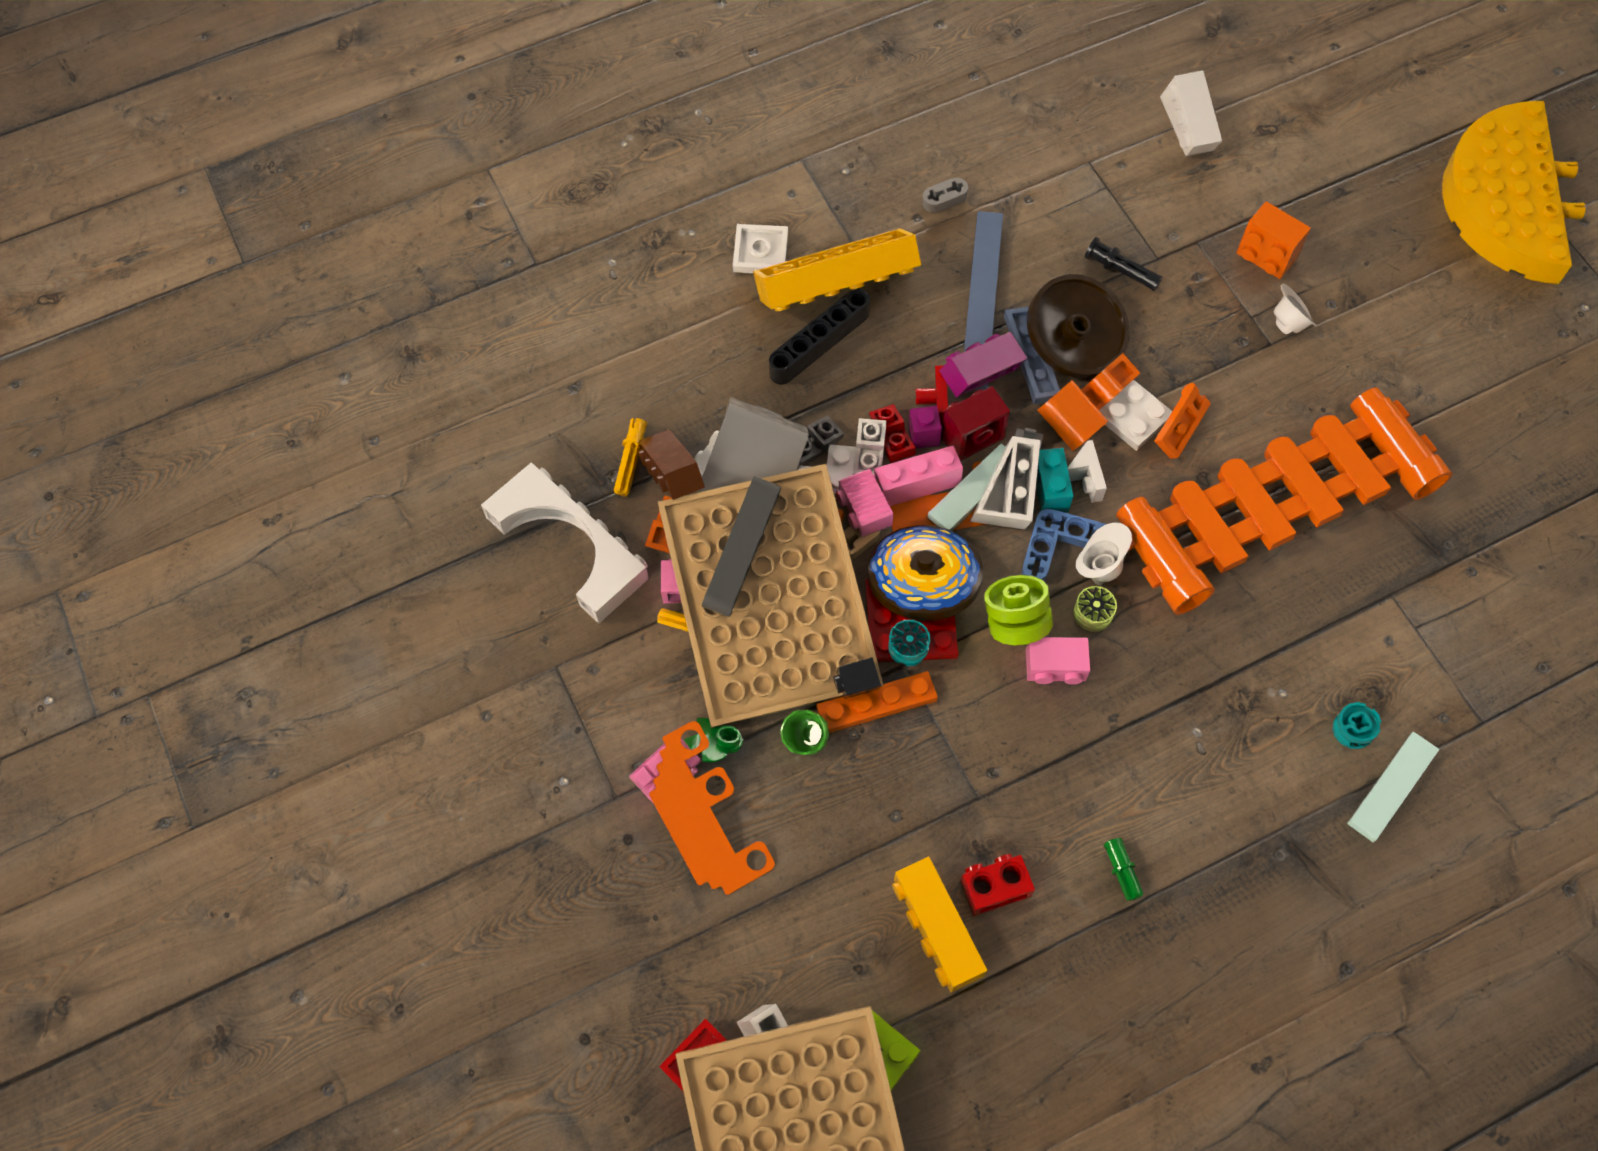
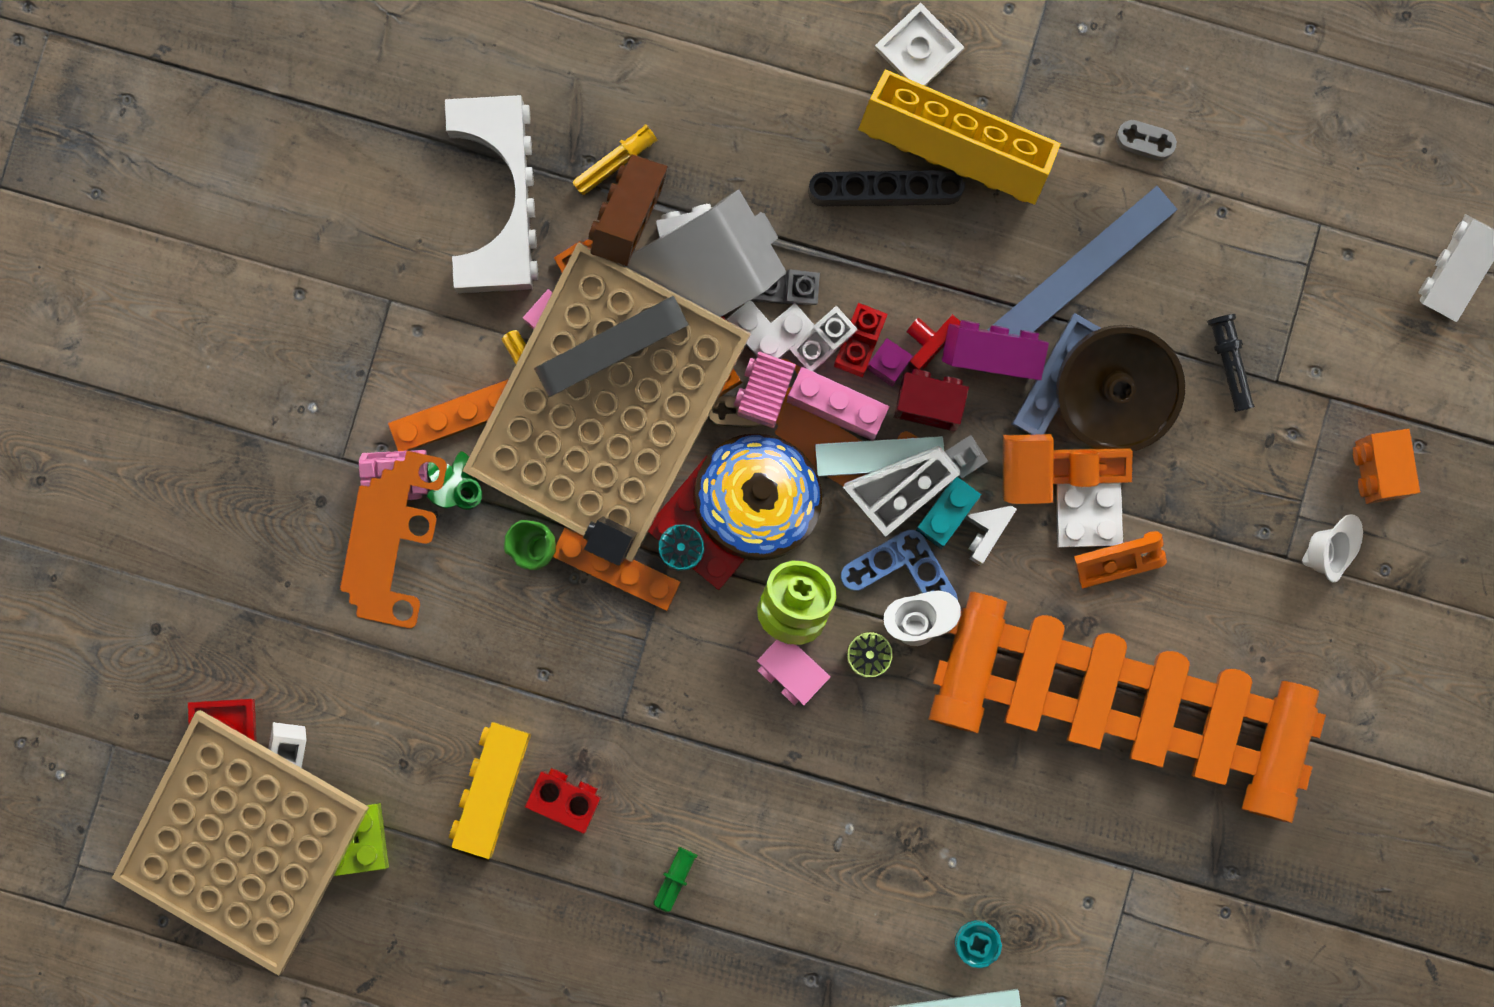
camera: 40 degrees right, 20 degrees up
(667, 704) = (446, 418): none -> orange plate

